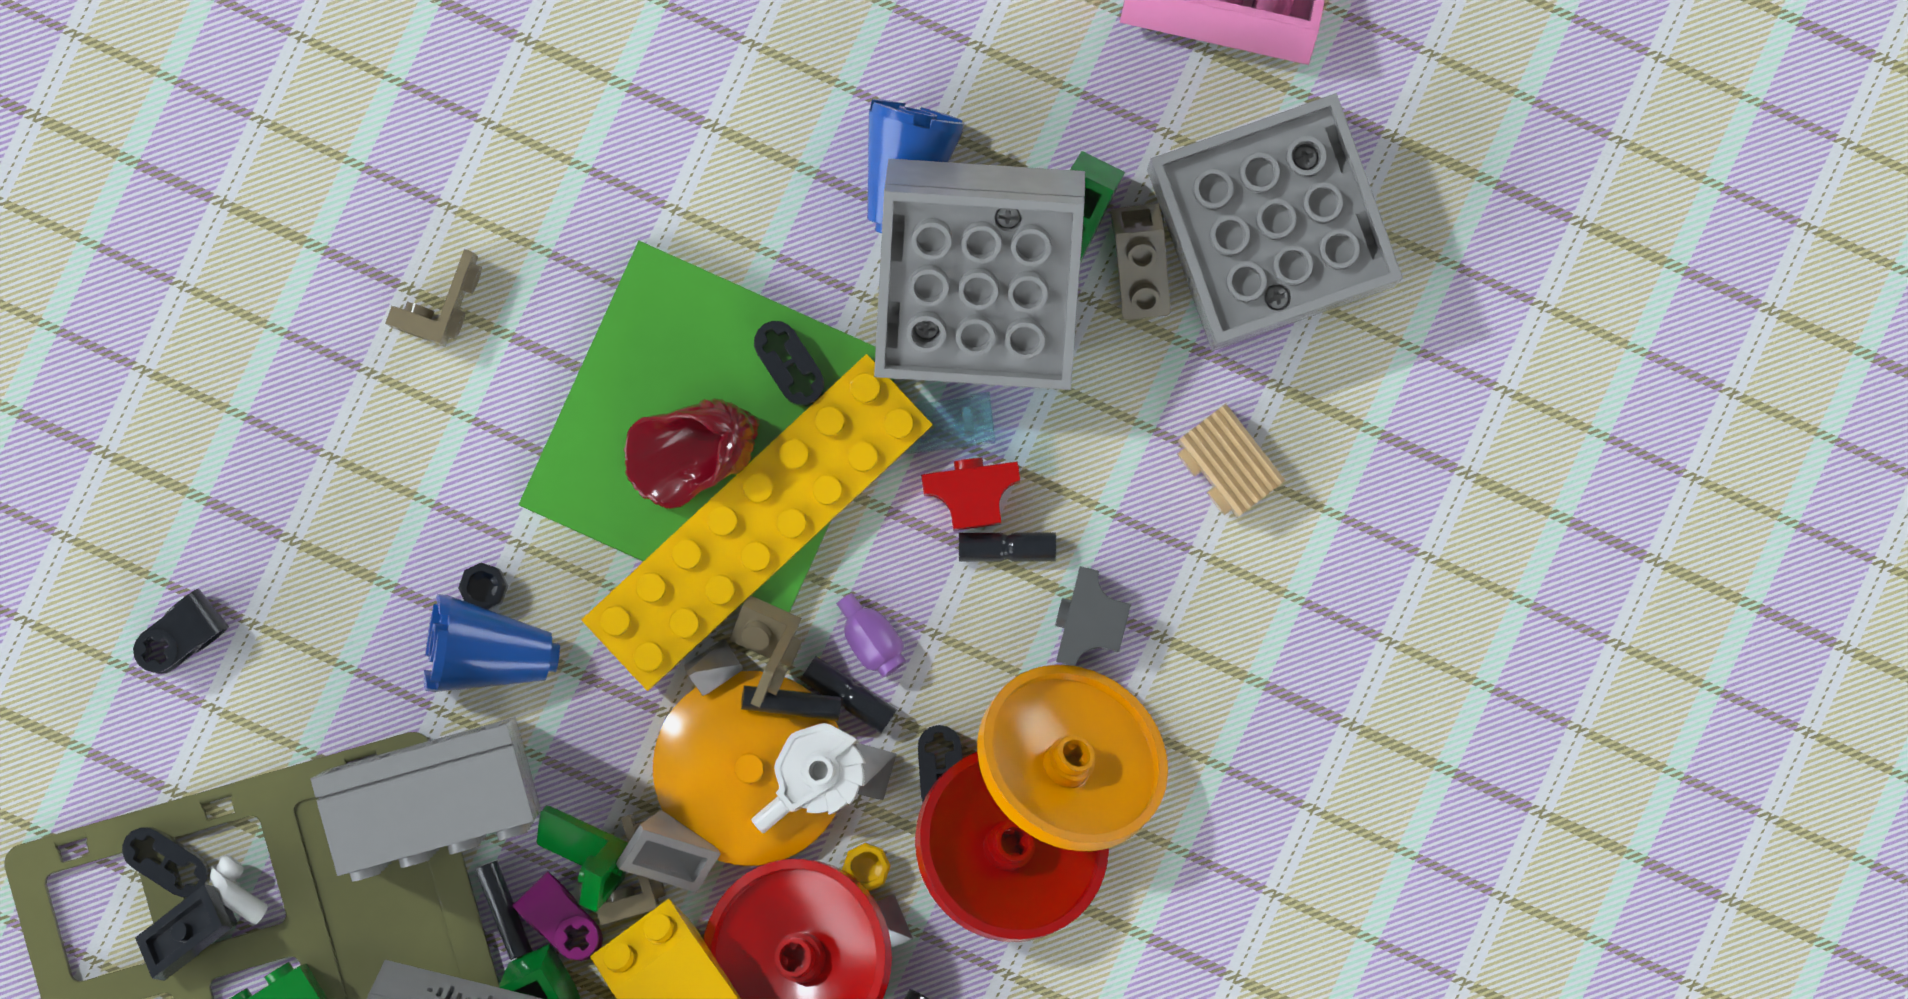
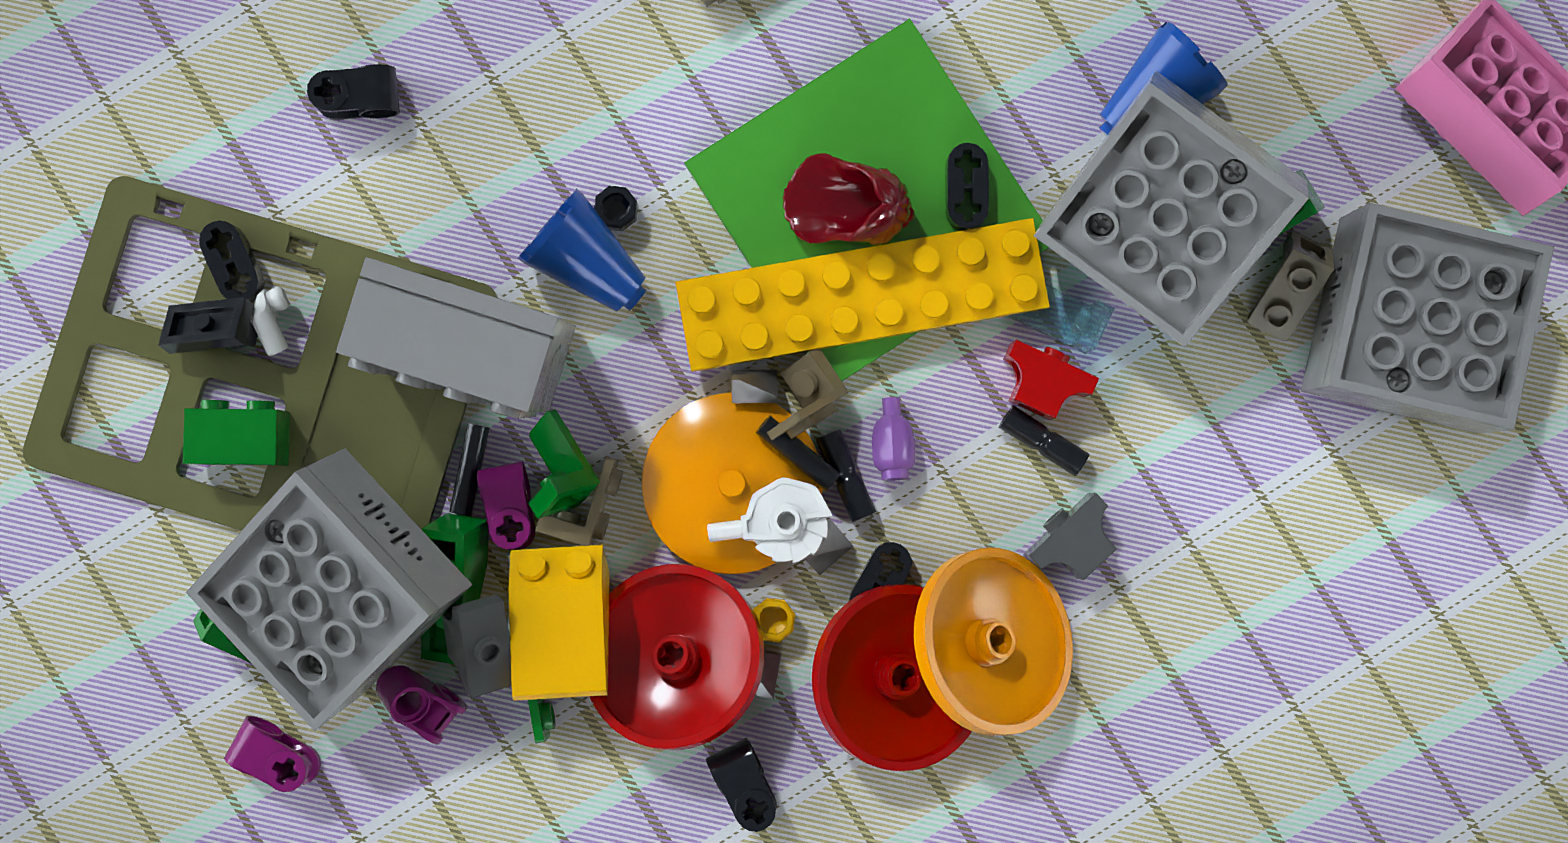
camera: 25 degrees right, 0 degrees up
(668, 853) = (625, 509): light grey slope -> none
(1229, 461) = (1262, 487): tan brick -> none

